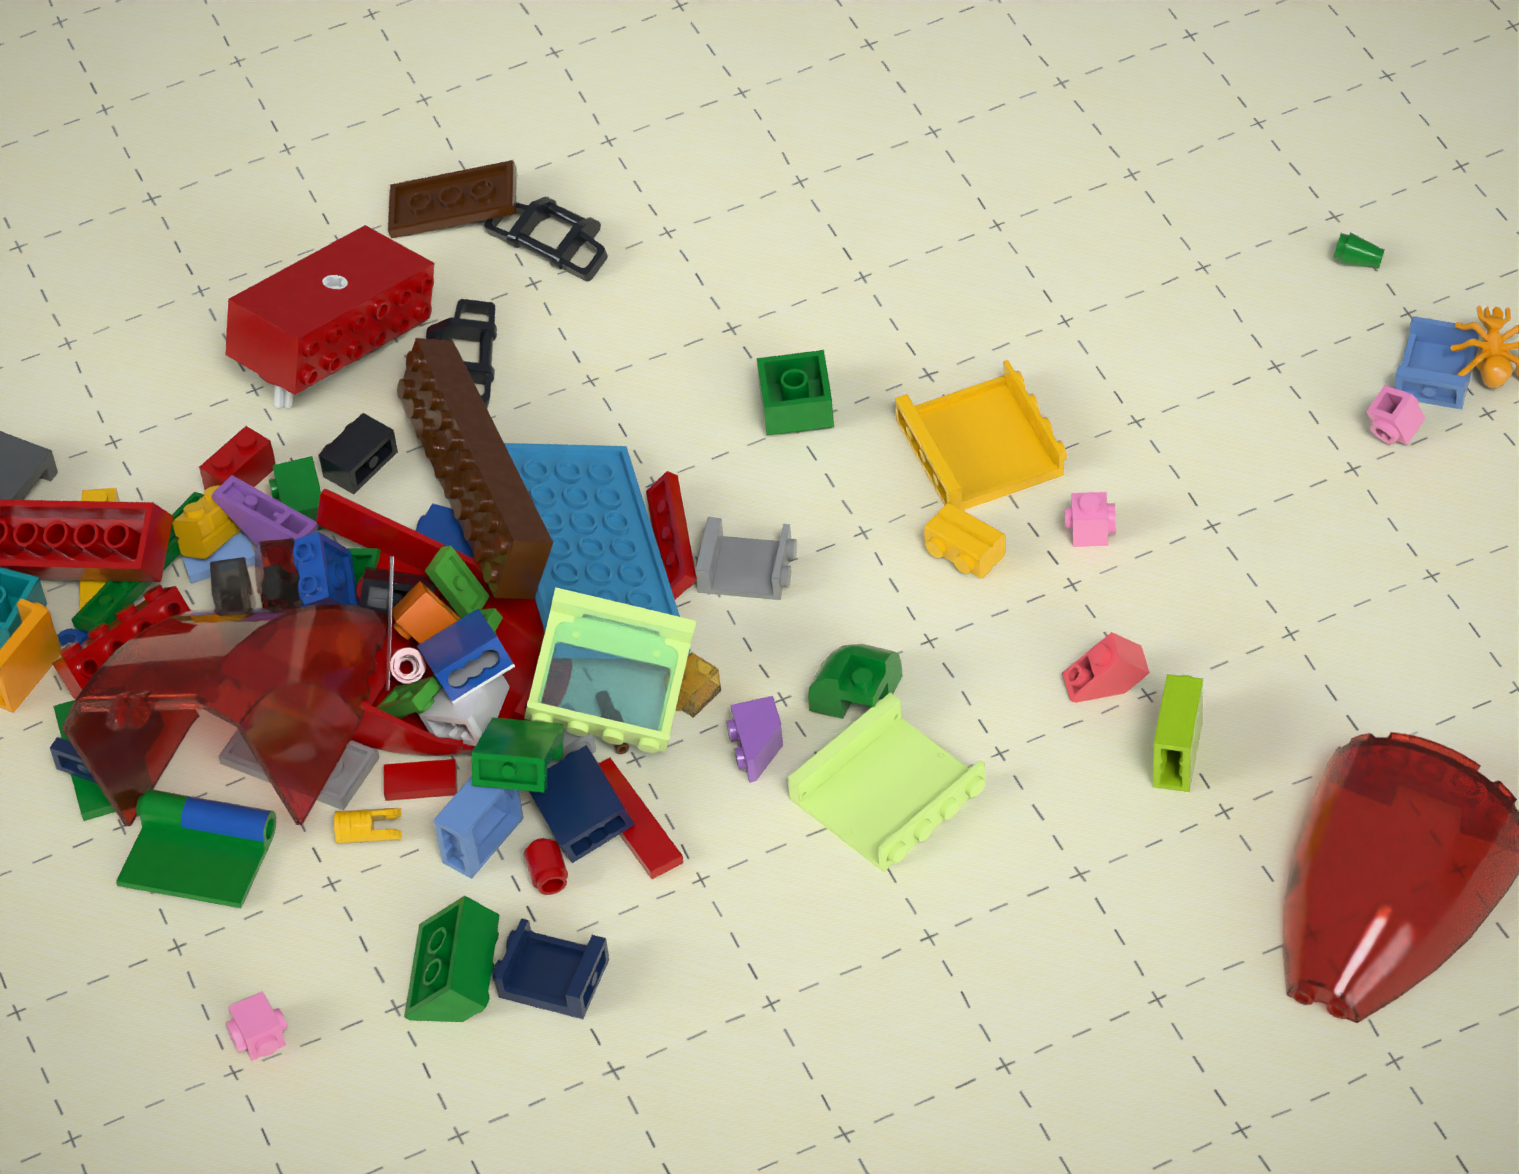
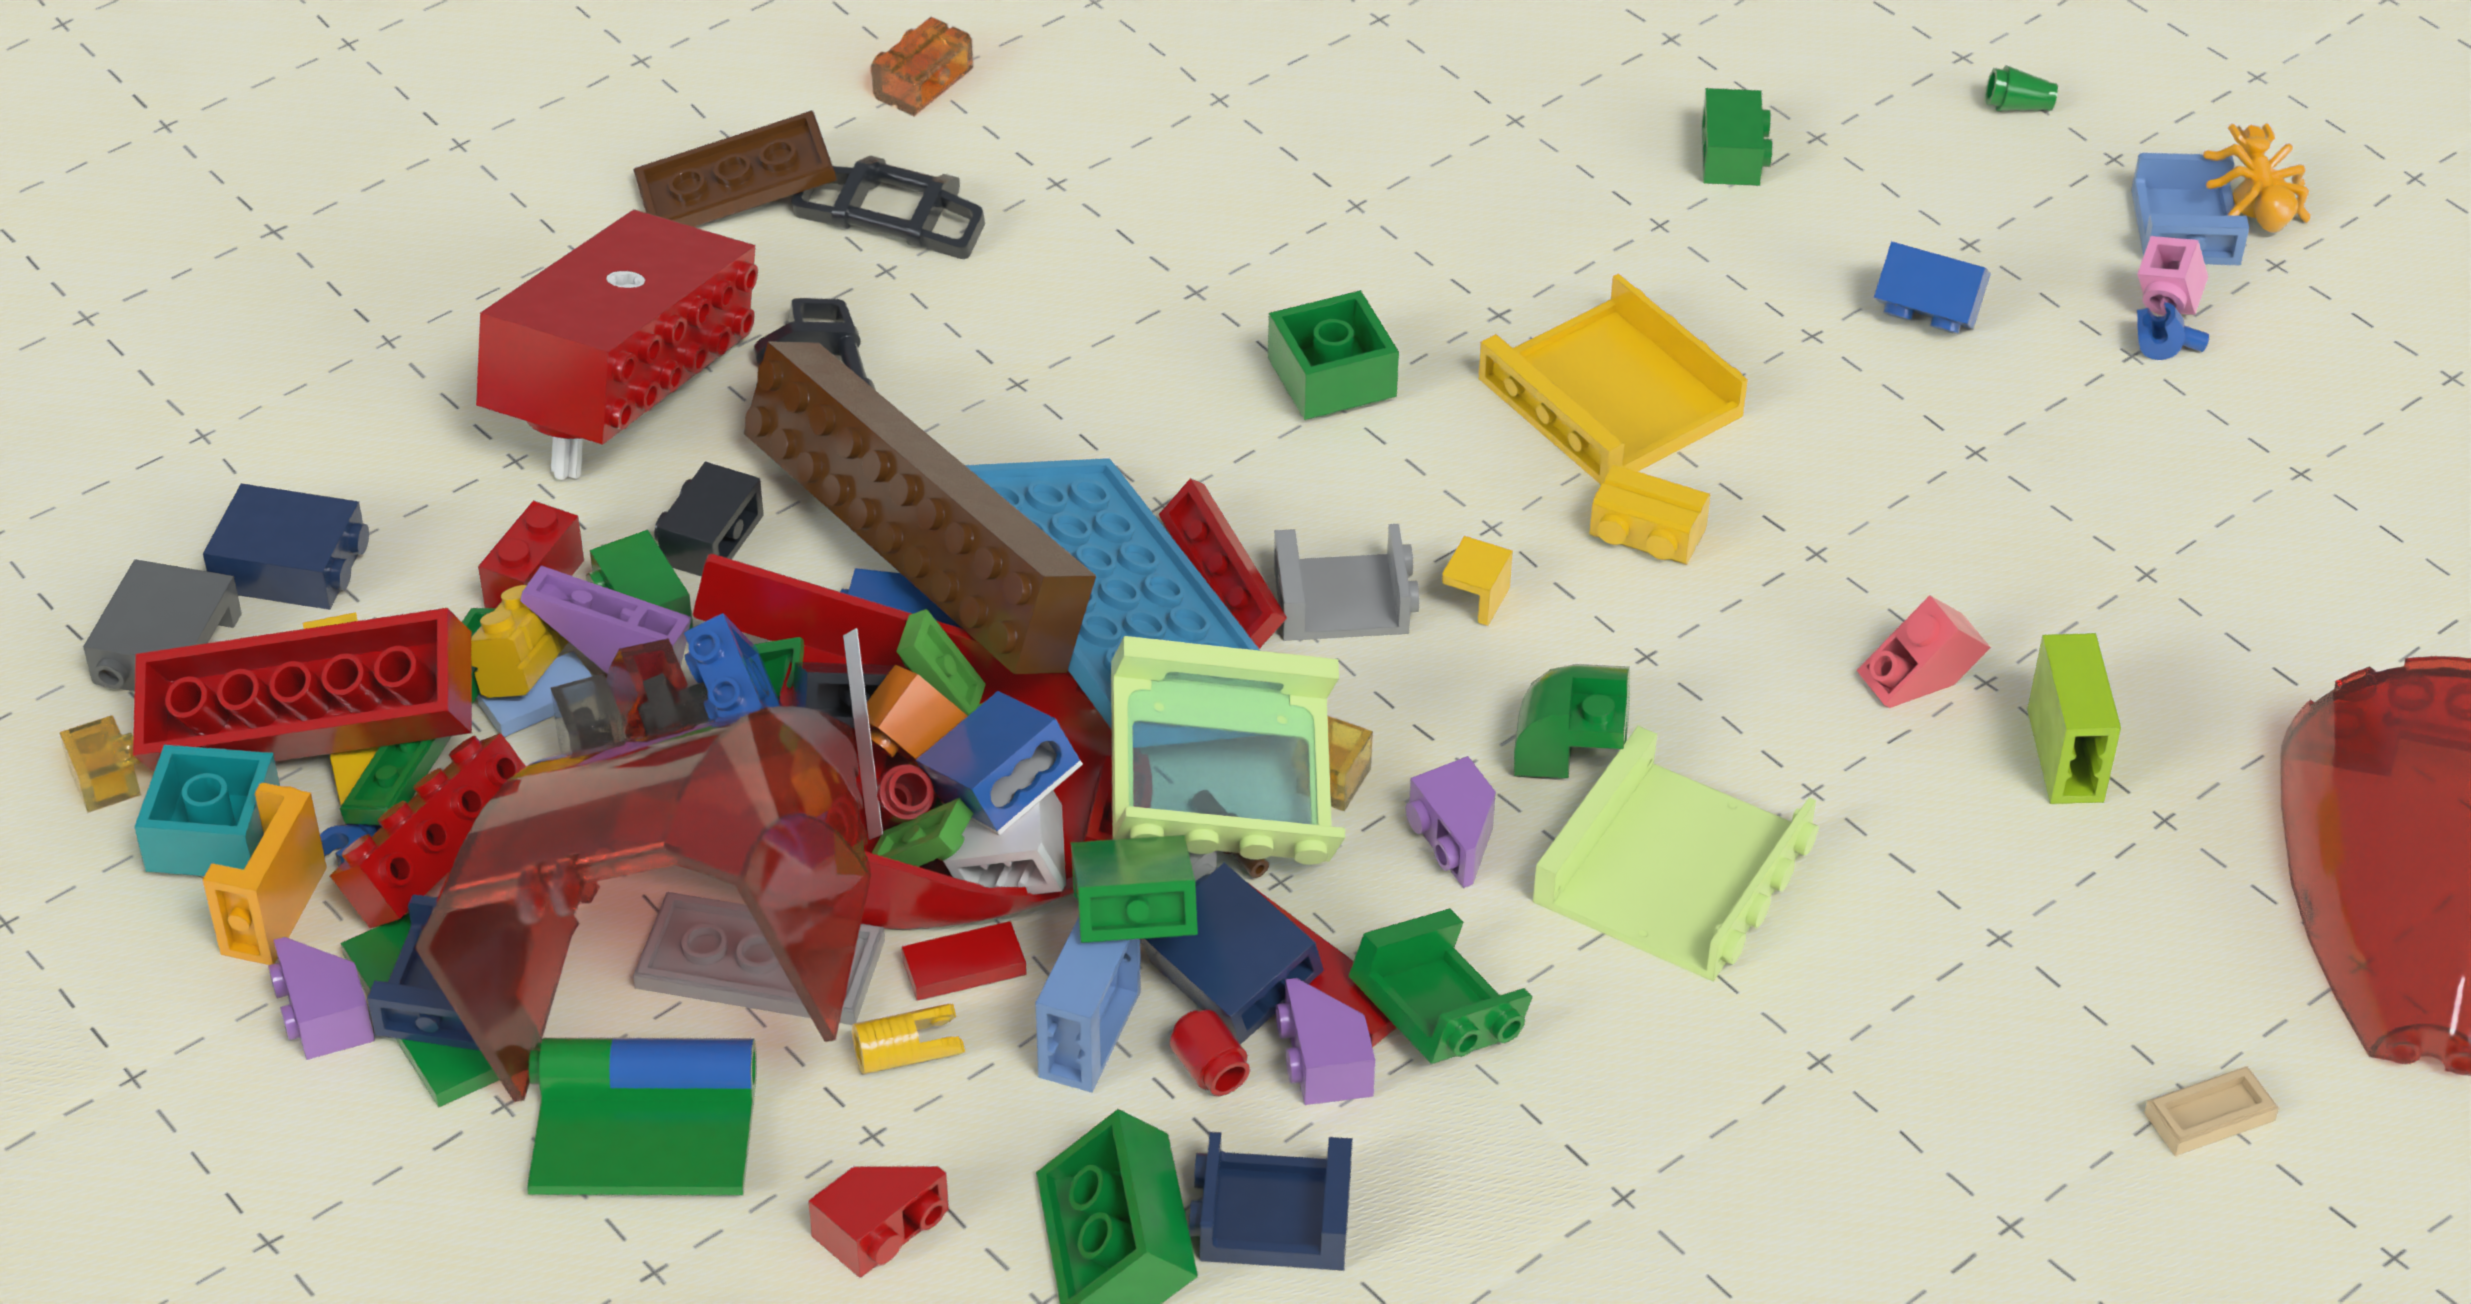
camera: 20 degrees left, 5 degrees down
(28, 741) = (324, 999): none -> medium lavender slope
(93, 431) = (288, 545): none -> dark blue brick
(313, 933) = (876, 1211): none -> red slope
(602, 131) = (921, 66): none -> clear orange brick
(619, 875) = (1328, 1044): none -> medium lavender slope
(697, 848) = (1433, 990): none -> green panel
(835, 567) = (1482, 571): none -> yellow panel
(1090, 519) = (1816, 461): bright pink brick -> none
(1137, 261) = (1735, 136): none -> green brick
(1163, 1013) = (2211, 1110): none -> tan tile
(1223, 399) = (1932, 287): none -> blue brick
(1376, 457) = (2165, 335): none -> blue piece

